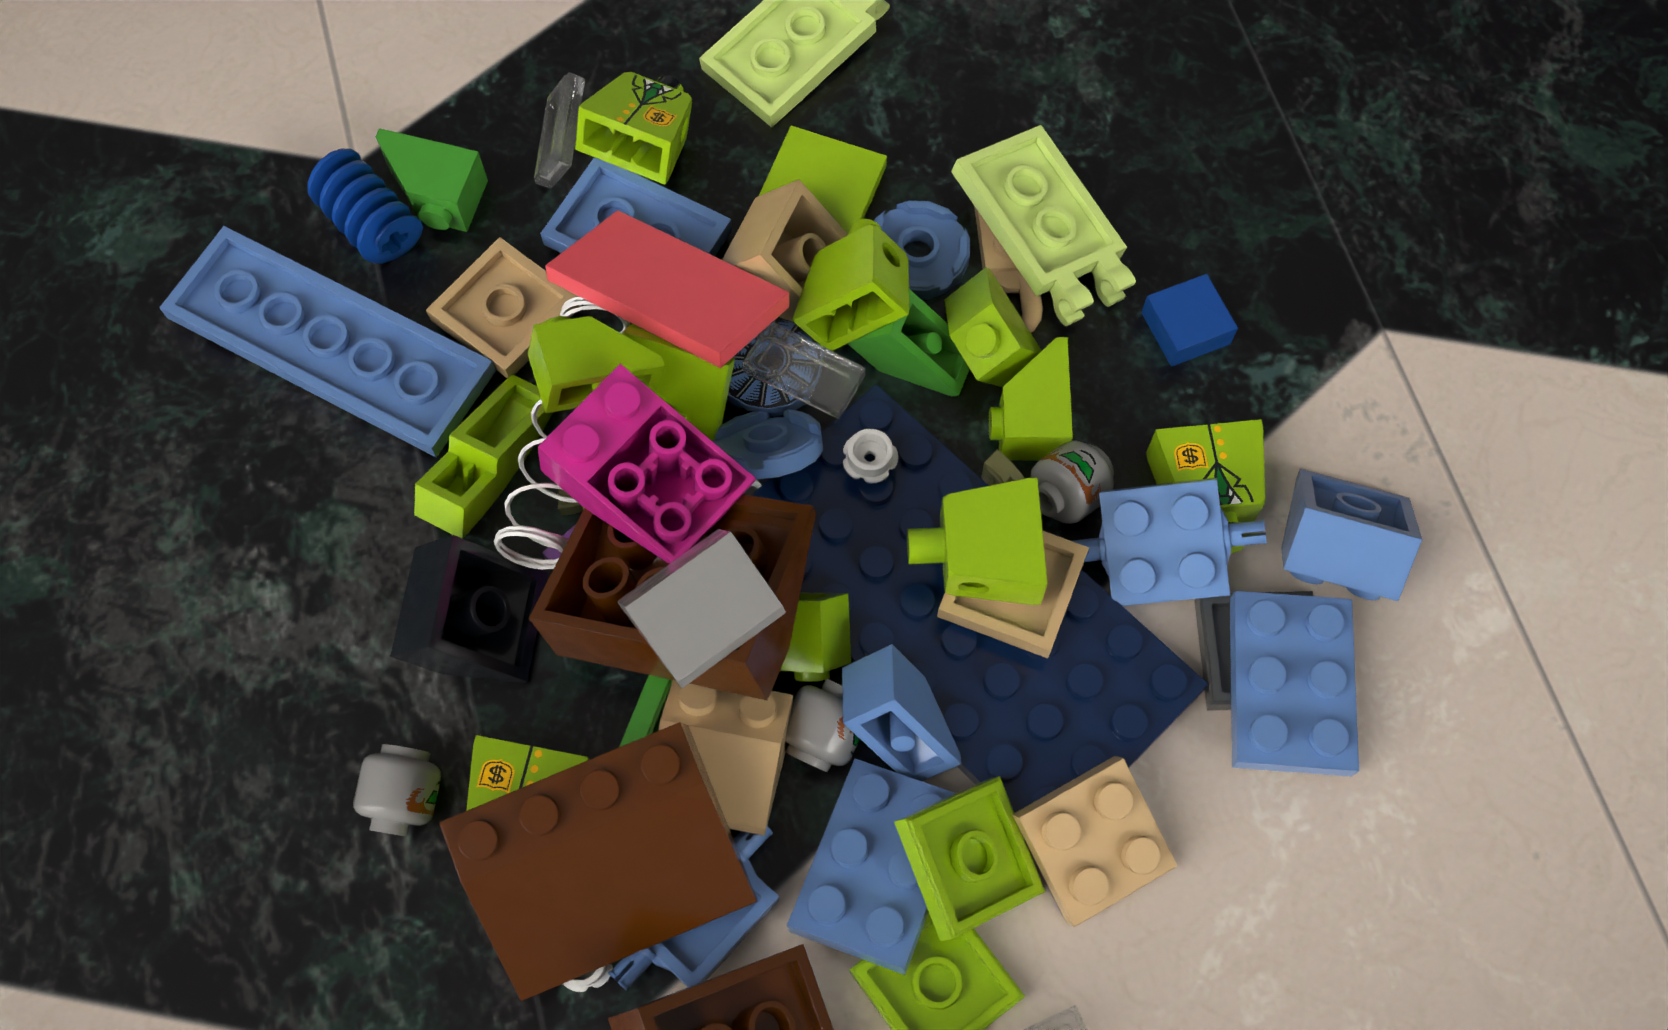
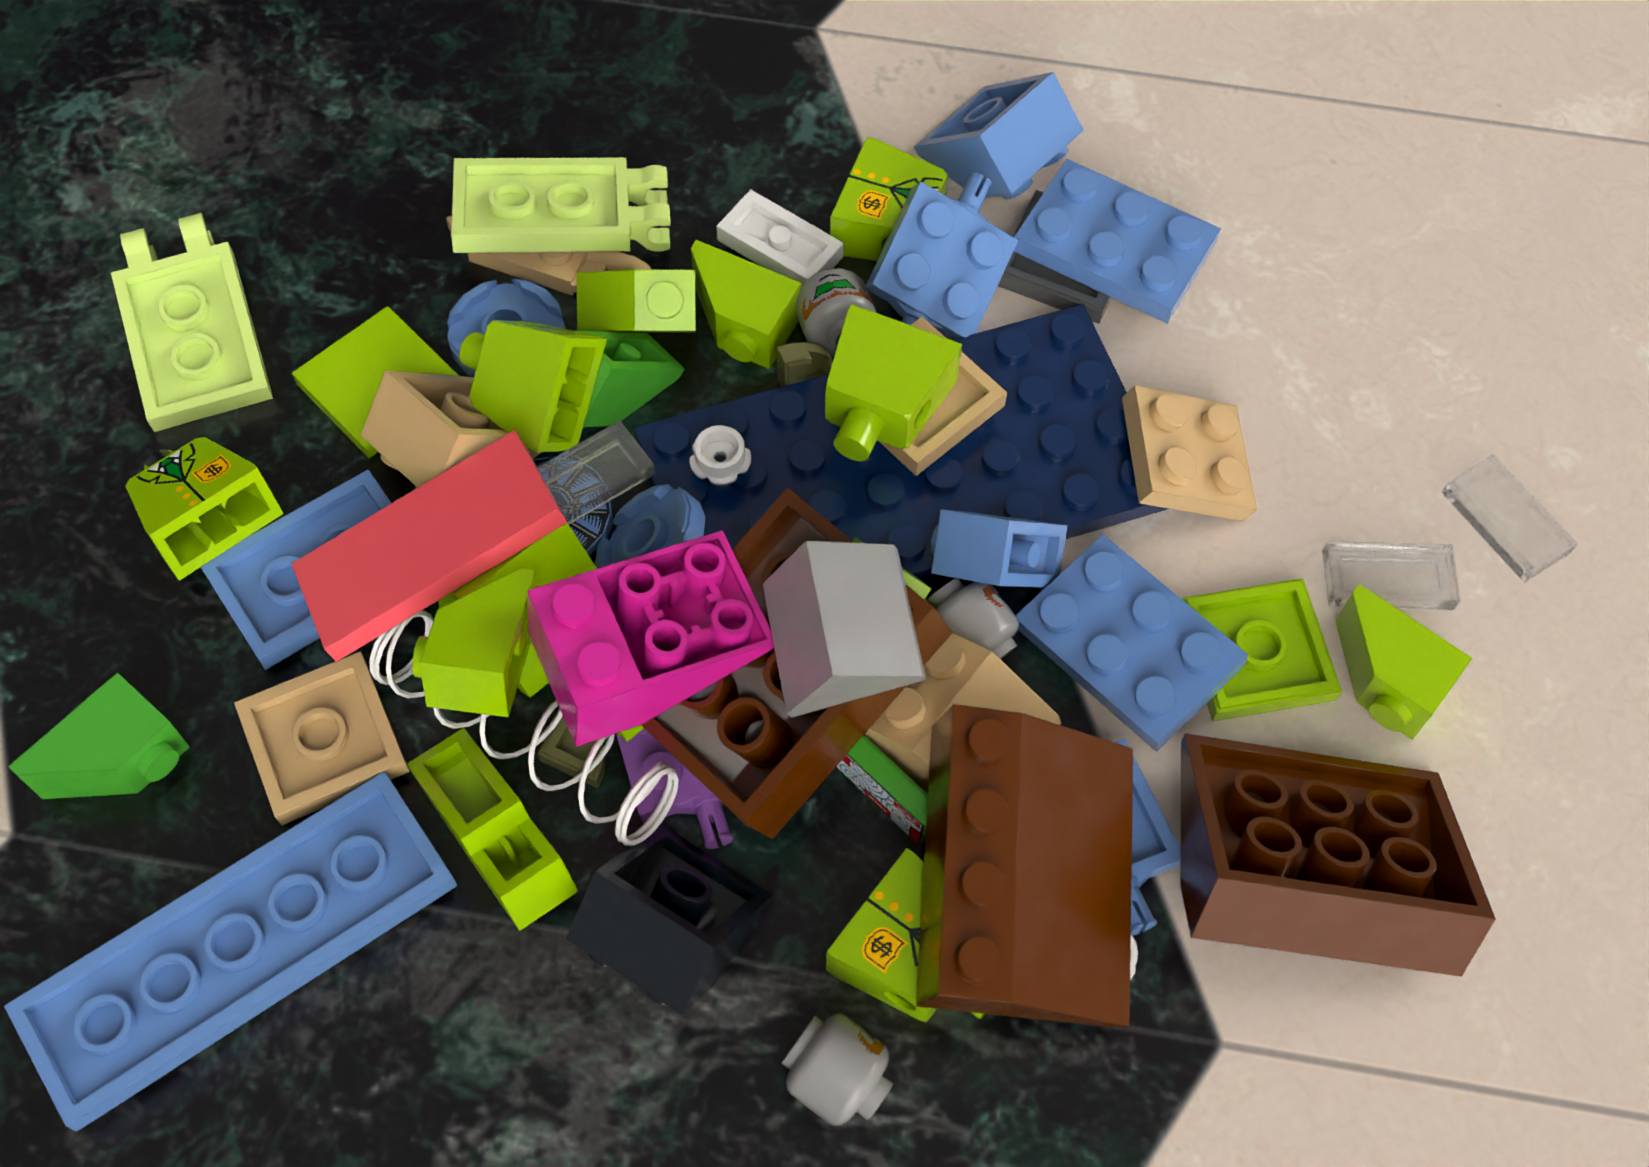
camera: 65 degrees left, 5 degrees down
(363, 207) = (92, 838): blue piece -> none
(559, 130) = (140, 588): clear tile -> none
(969, 858) = (1164, 555): lime tile -> none
(1123, 405) = (778, 239): none -> white plate
(1189, 320) = (723, 153): blue piece -> none

